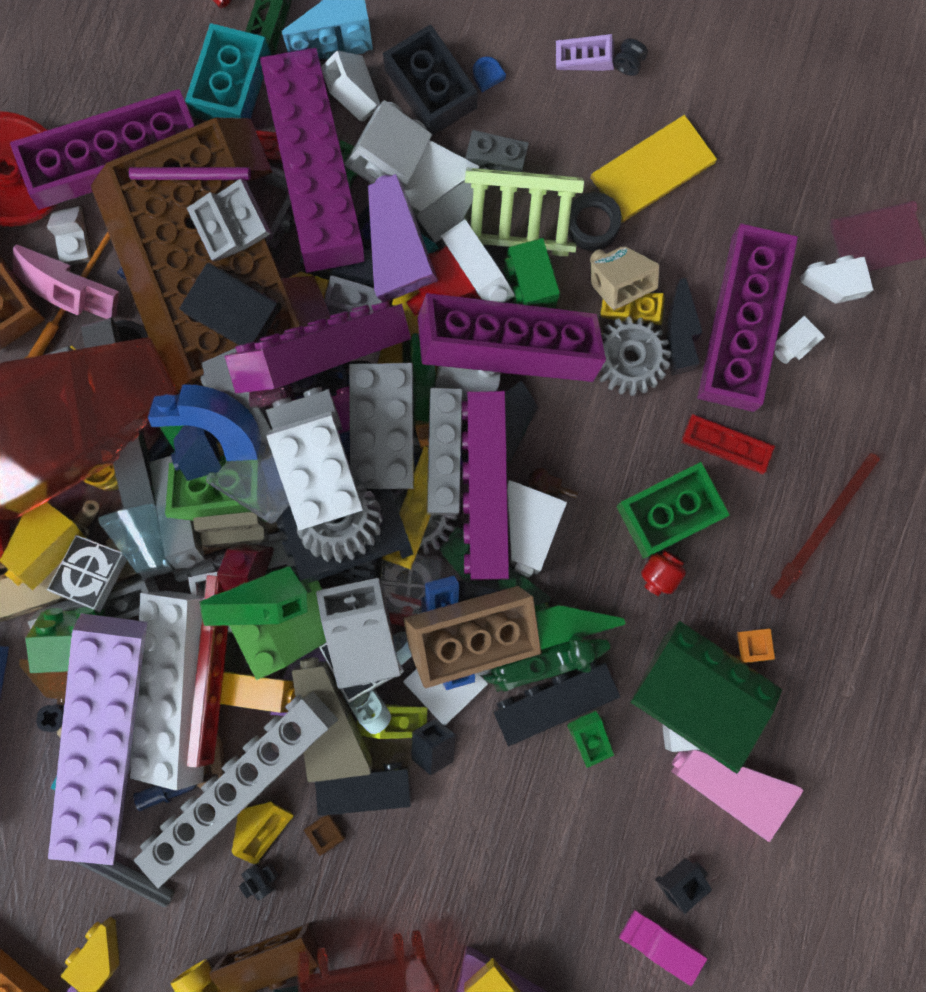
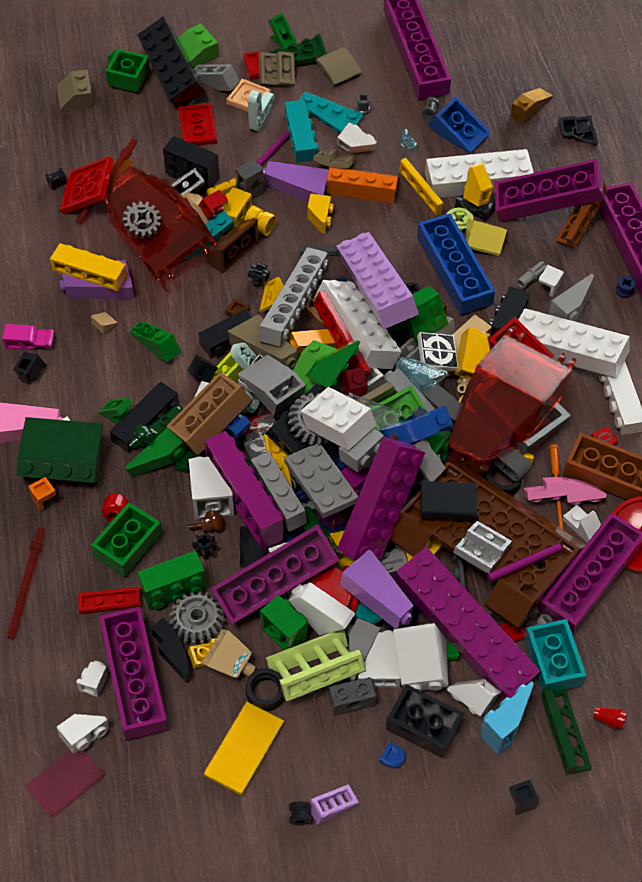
camera: 150 degrees right, 25 degrees down
(476, 838) = (156, 340): none -> green slope
(534, 919) = (103, 322): none -> tan slope
(580, 450) = (201, 549): none -> black gear
(643, 412) = (172, 580): none -> green brick

